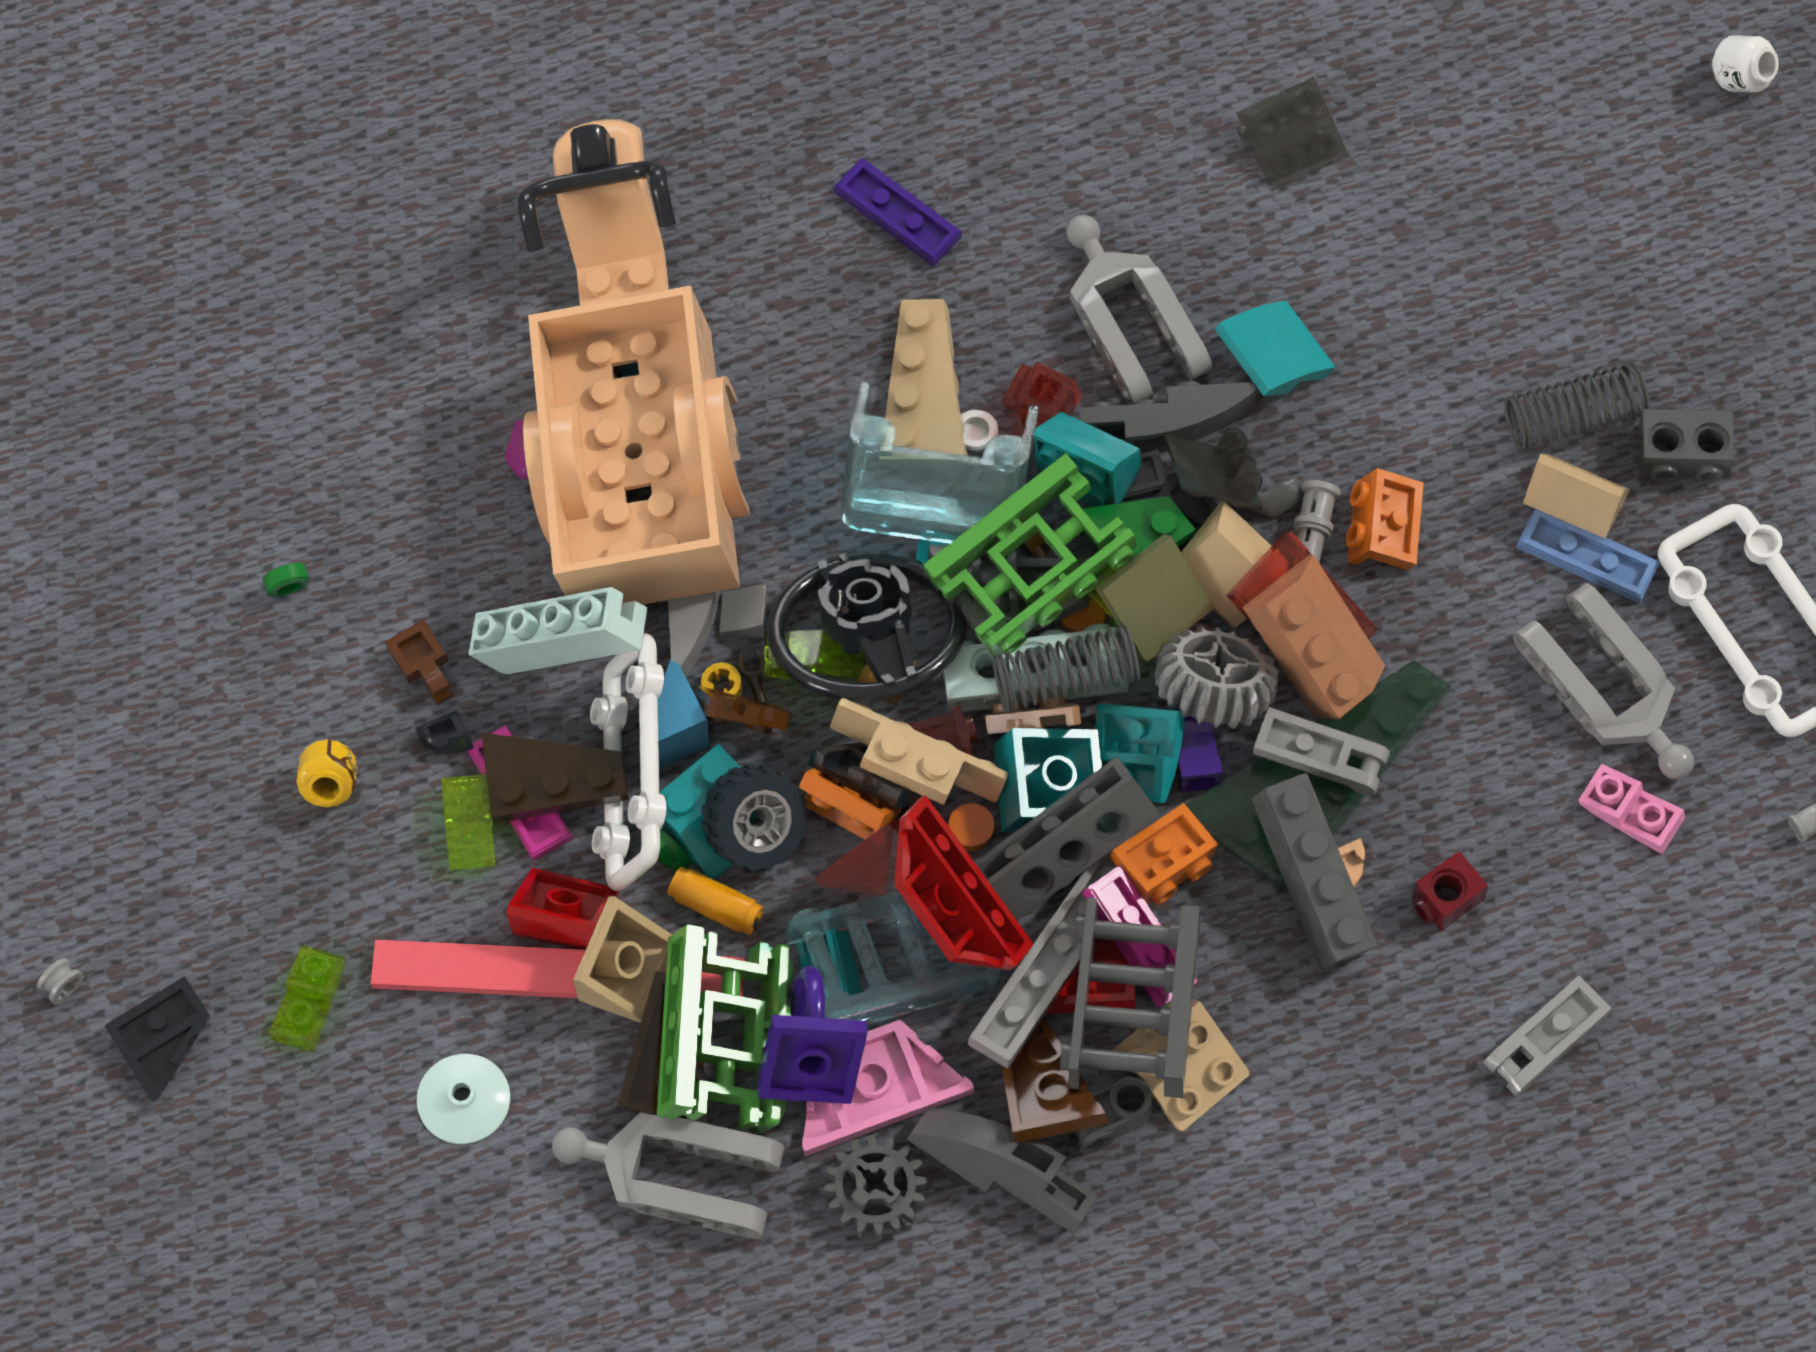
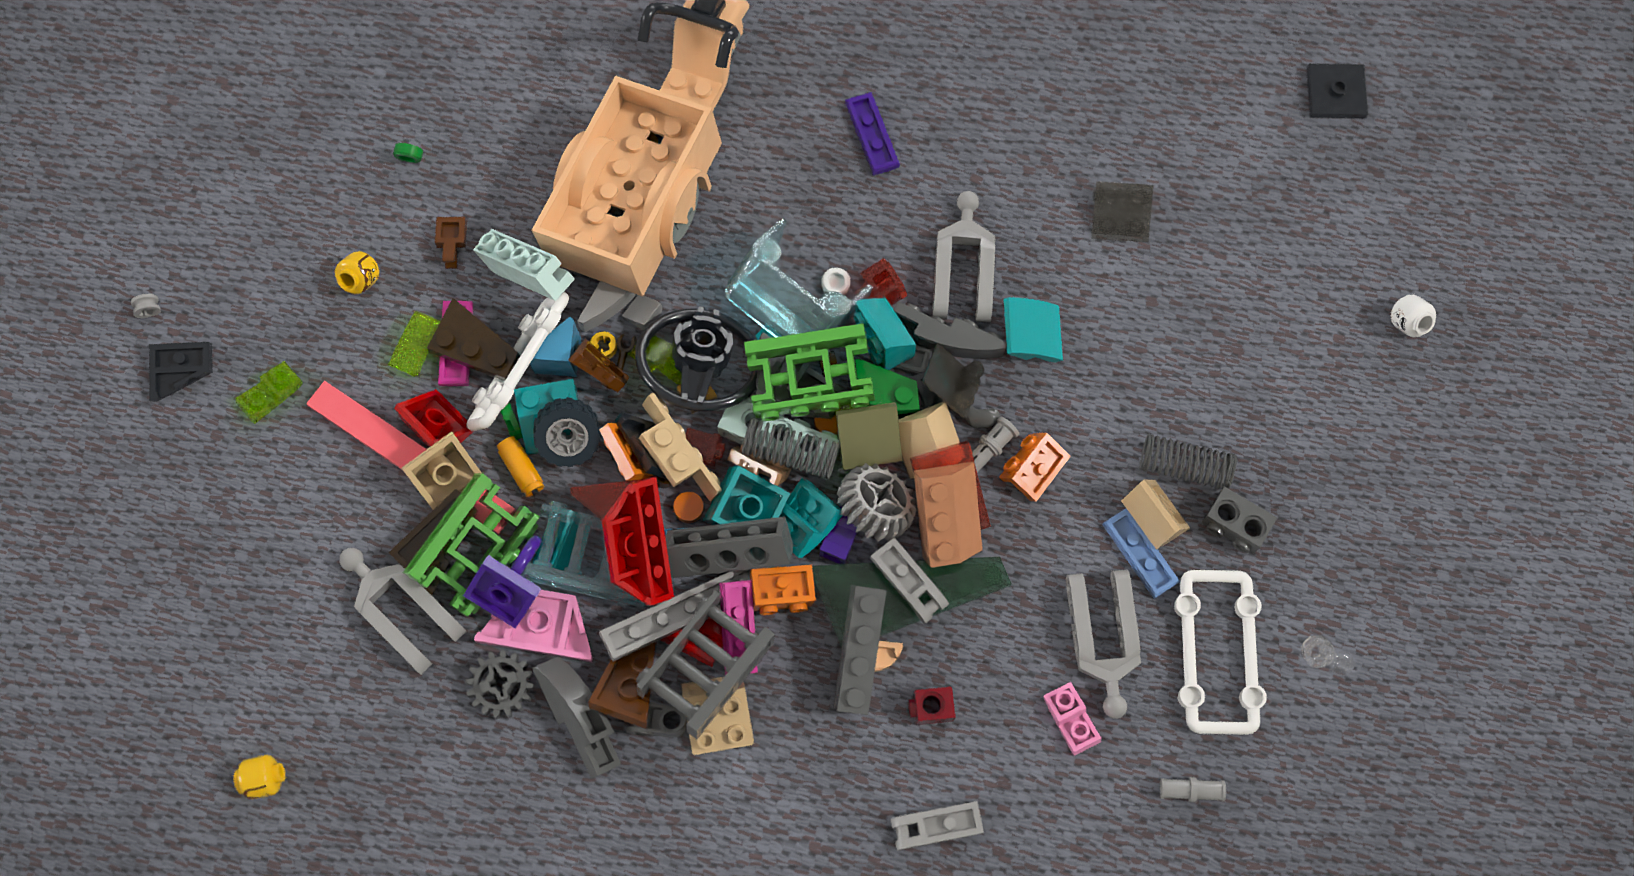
camera: 25 degrees right, 5 degrees up
(445, 734) = (437, 287): black tile -> none
(467, 1119) = (324, 507): light aqua dish -> none
(924, 381) = (817, 246): tan wing -> none

